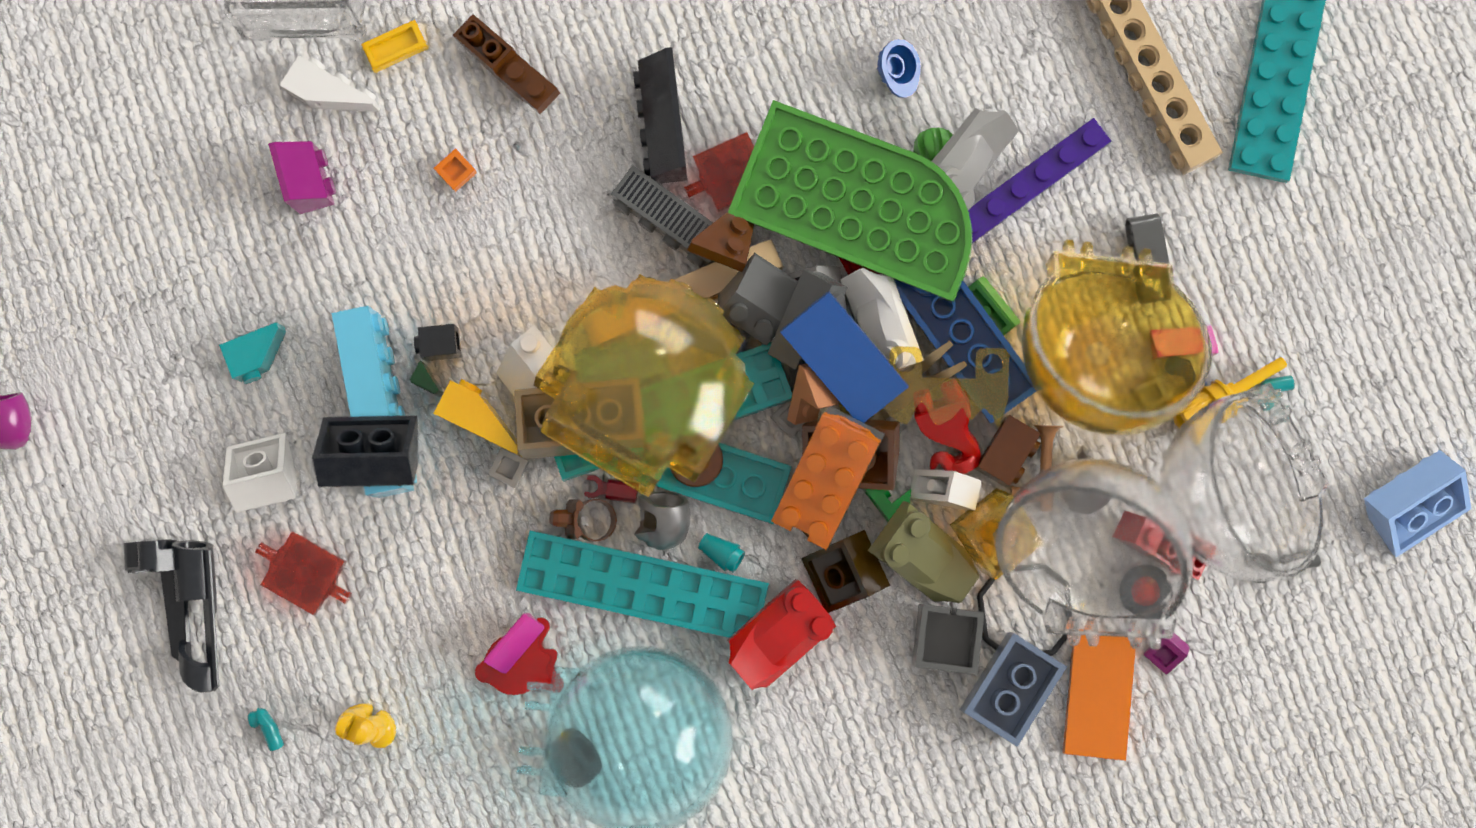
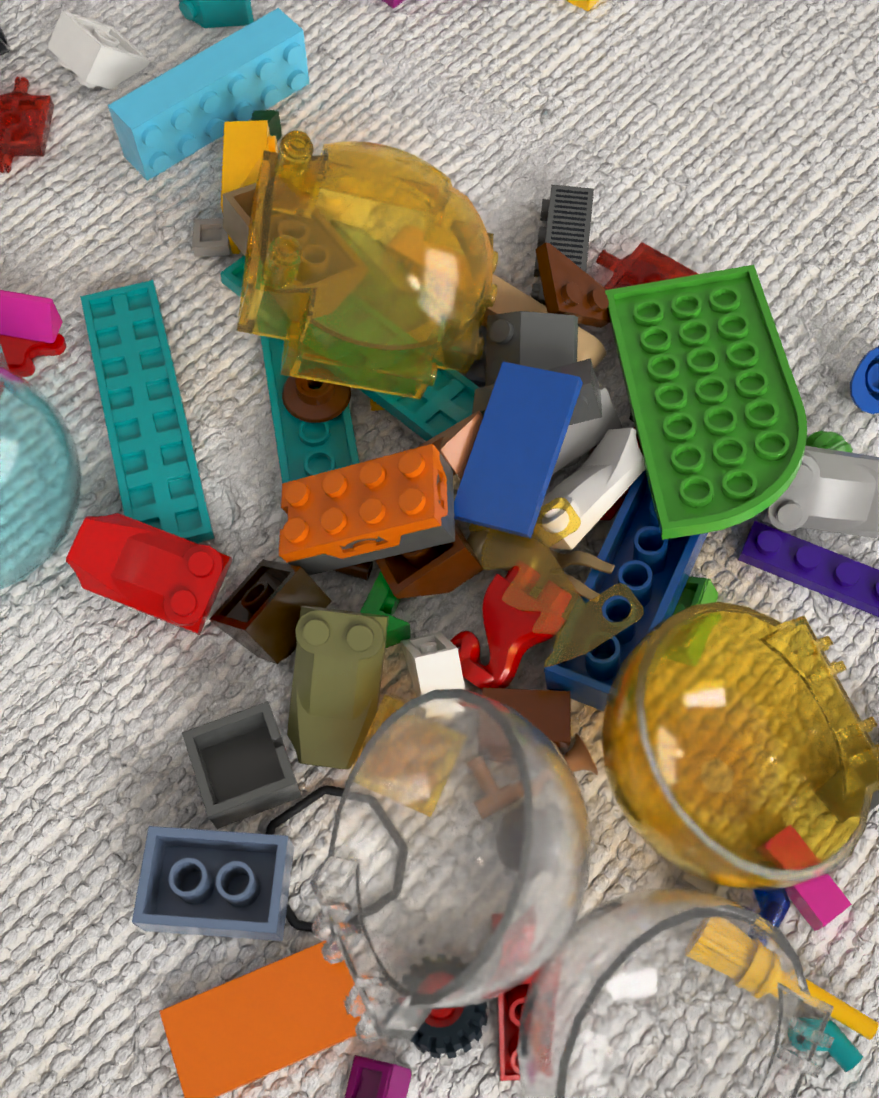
camera: 60 degrees right, 20 degrees down
(366, 451) = (149, 77): black slope -> none
(438, 342) = (311, 119): black brick -> none
(455, 170) = (486, 69): orange plate -> none
(506, 64) = (616, 58): reddish brown slope -> none
(568, 517) = (181, 300): reddish brown piece -> none
(613, 490) = (241, 344): dark red bar -> none
(661, 117) = (662, 199): black slope -> none
(663, 520) = (229, 392): flat silver piece -> none
(722, 552) = (225, 471): teal cone -> none

